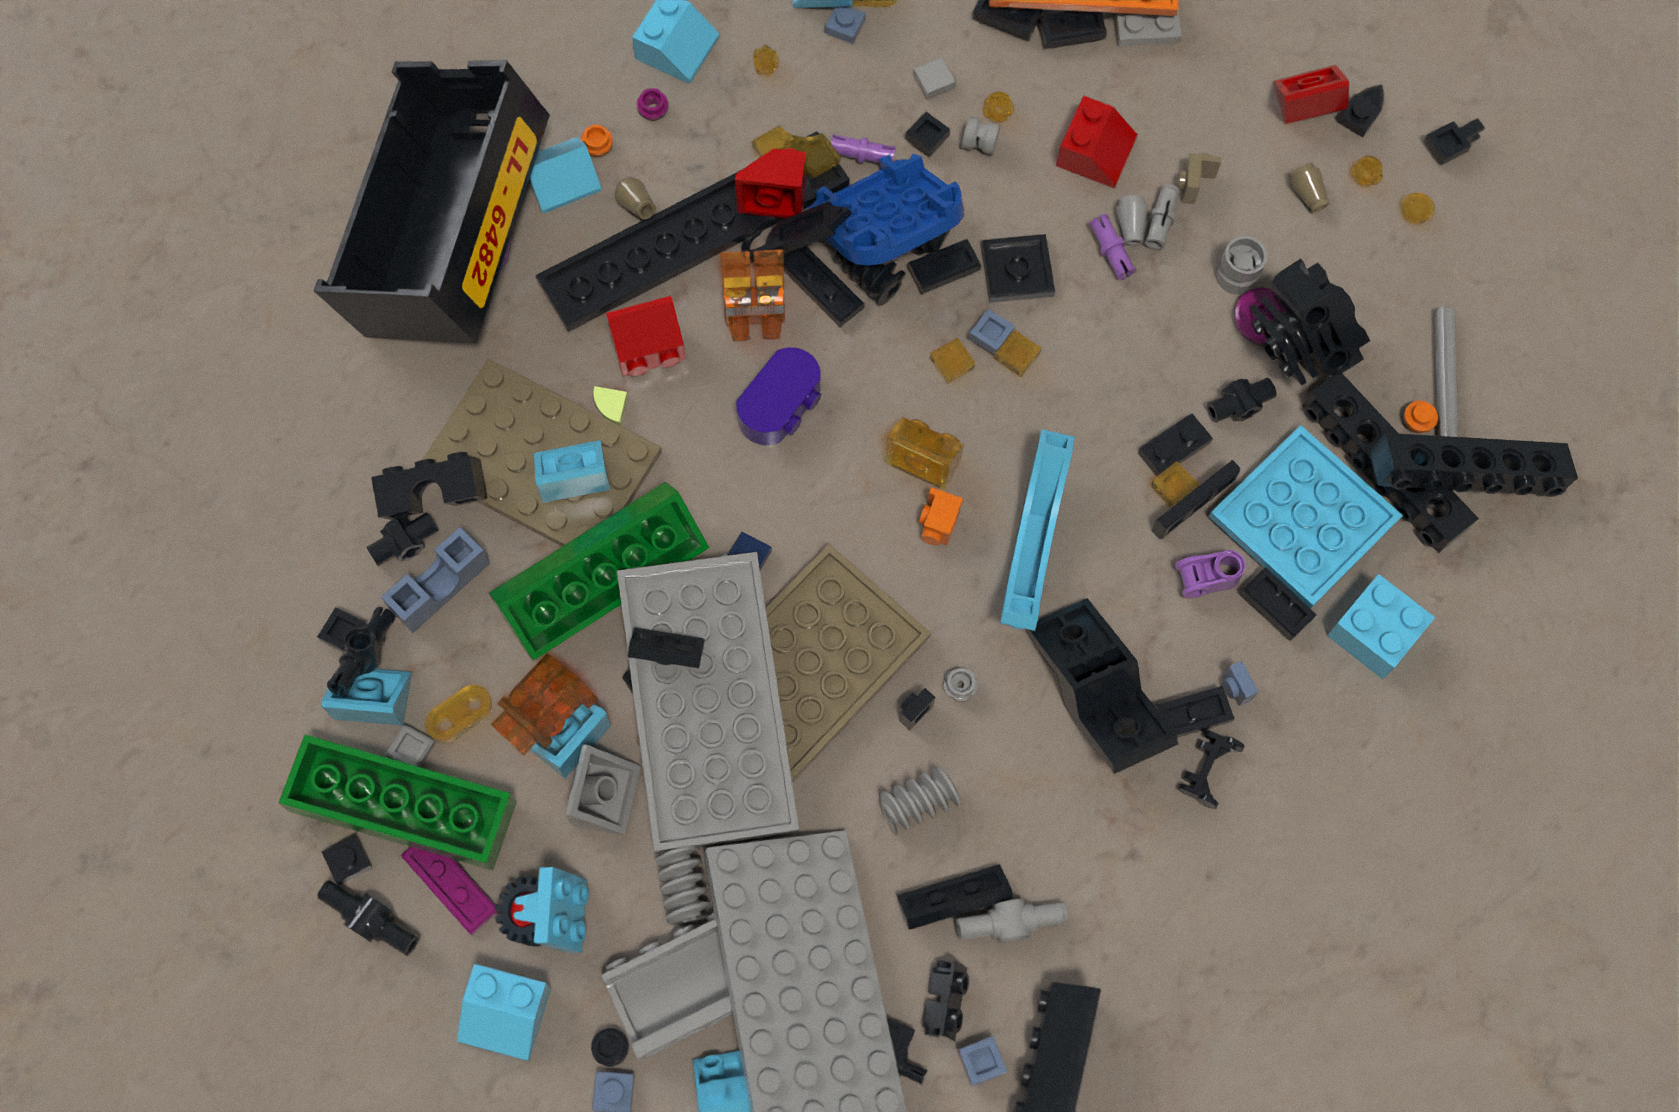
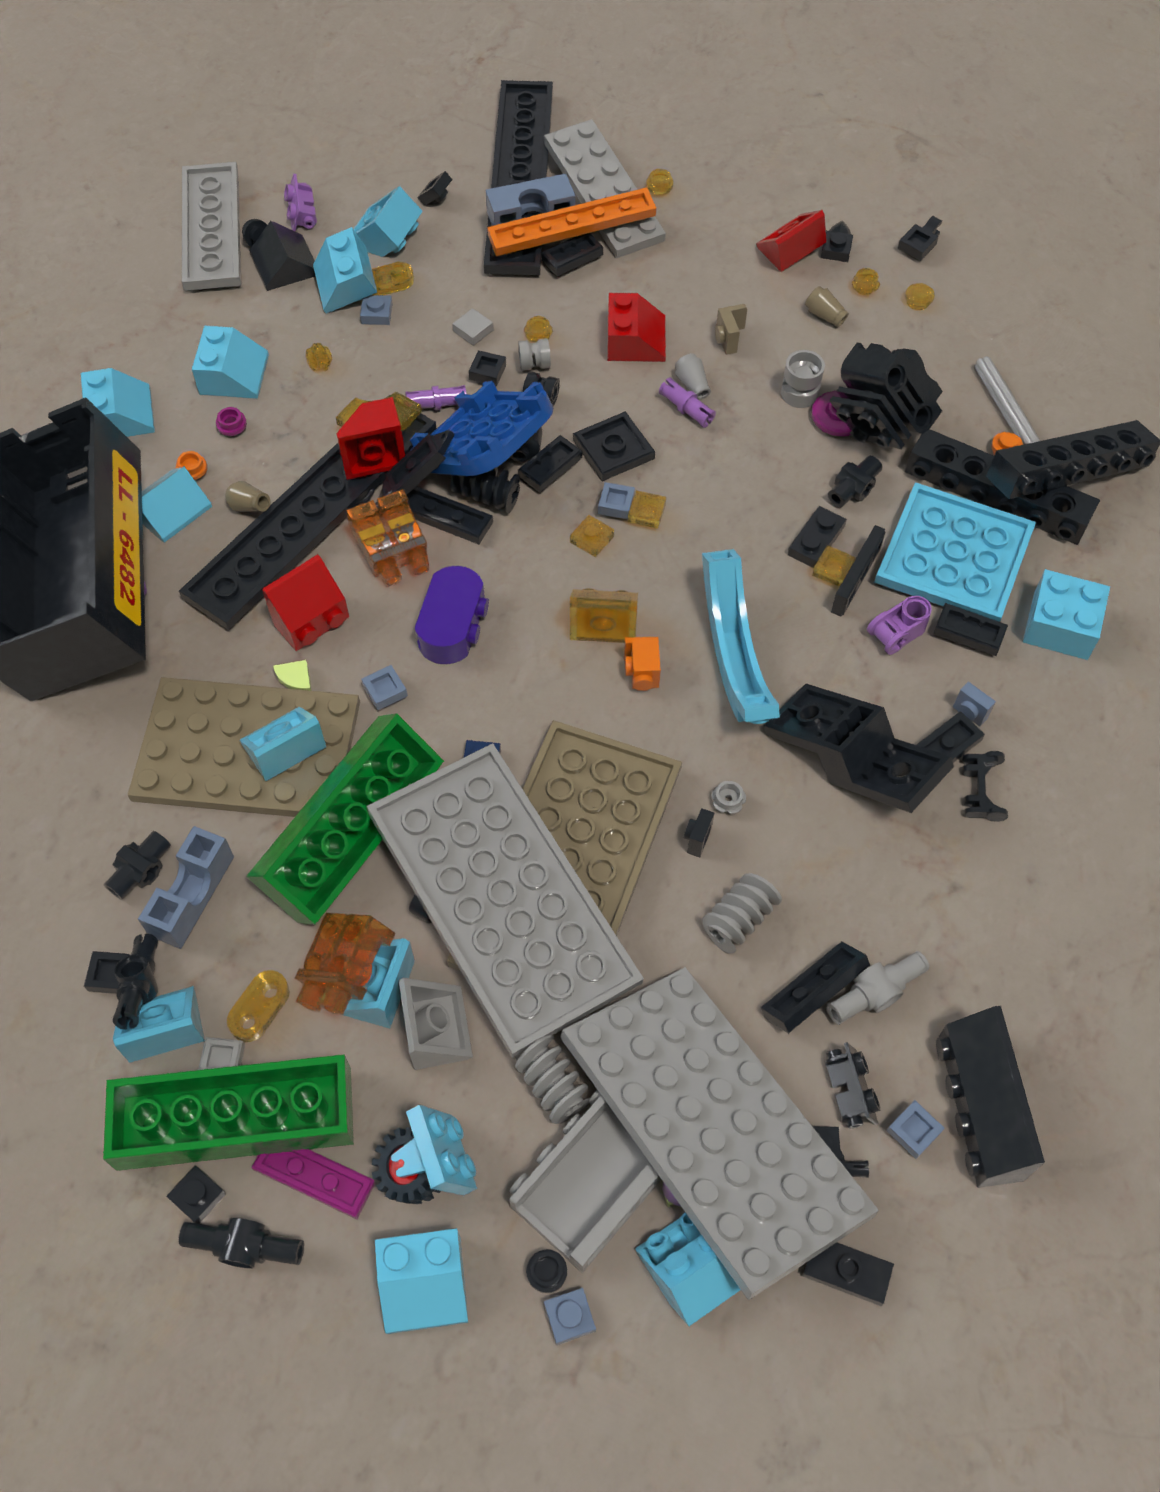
camera: 20 degrees left, 10 degrees down
(400, 490) = (119, 816): black arch -> none
(549, 46) = (120, 399): none -> medium azure slope
(666, 648) = (445, 856): black plate -> none
(687, 448) = (384, 687): none -> sand blue plate
(970, 178) = (550, 384): none -> black wheel
(1162, 217) = (717, 367): light grey pin -> none

